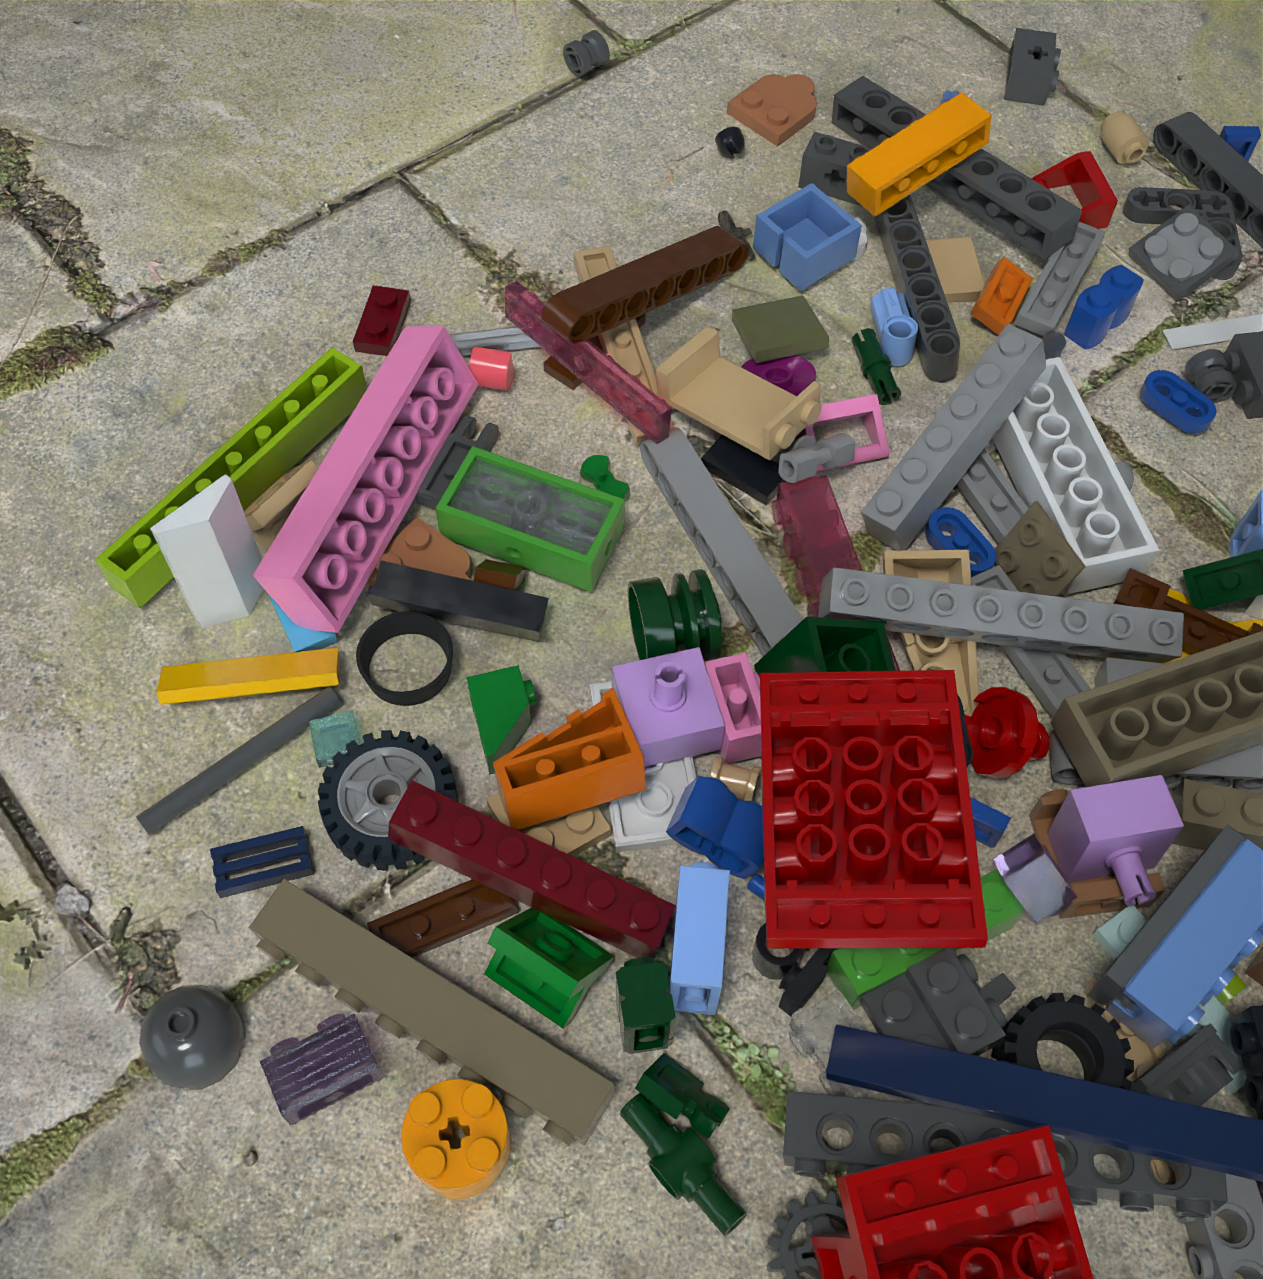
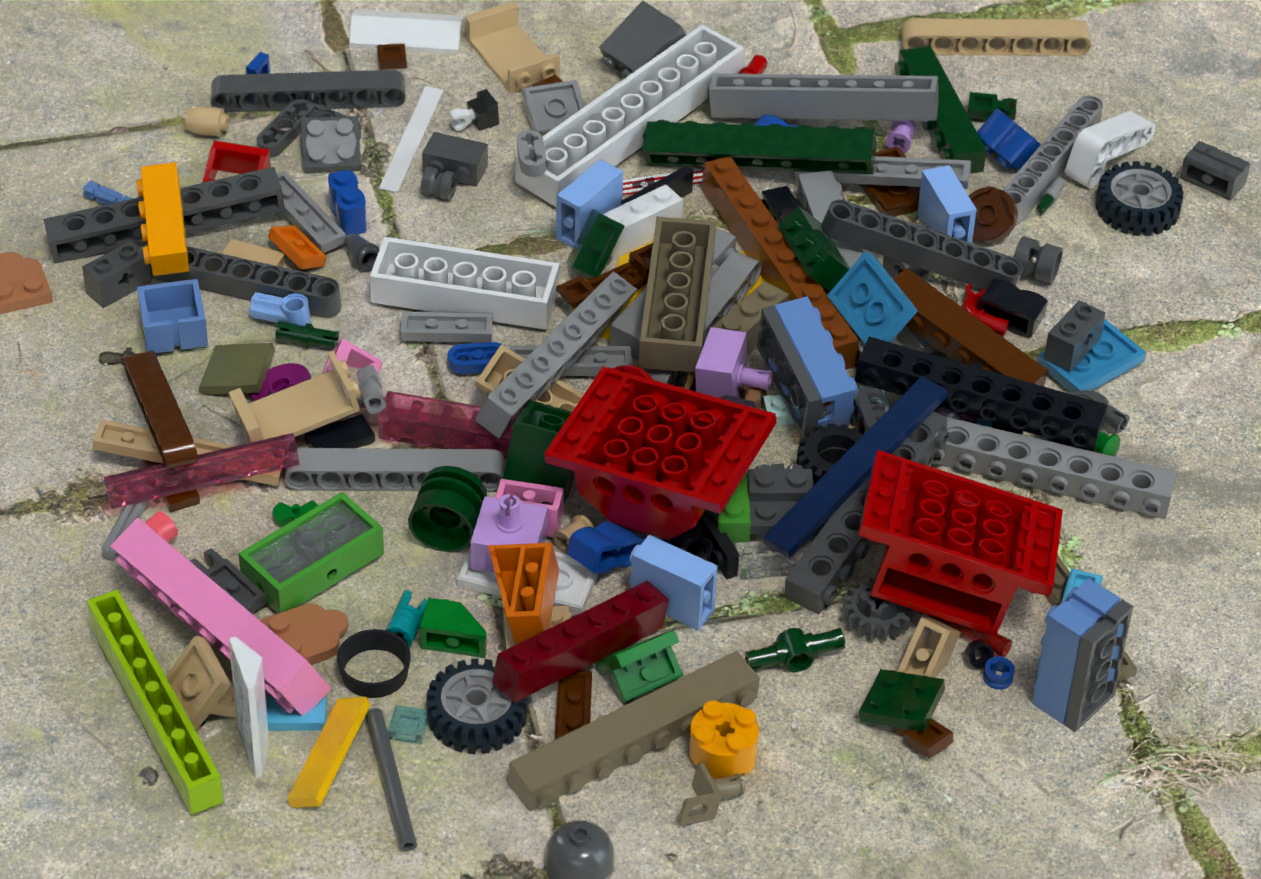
camera: 65 degrees left, 15 degrees down
(258, 845) = (480, 769): dark blue tile -> none
(320, 1068) = (641, 794): clear purple brick -> none
(369, 1164) = (709, 793): none -> dark tan bracket
(381, 320) = (52, 584): dark red plate -> none
(459, 601) = (351, 616): black panel -> none
(486, 657) = (406, 618): none -> teal hinge
(499, 574) = (340, 591): reddish brown tile -> none
(644, 1005) = (699, 621): dark green brick -> none
(678, 1092) = (752, 637): dark green plate -> none
(730, 142) = (34, 321): black hinge -> none
(954, 438) = (413, 313): light grey brick -> none
(1032, 67) = (98, 133): dark grey brick -> none
(1038, 555) = (521, 319): dark tan hinge -> none
(1178, 401) = (445, 208): blue plate -> none

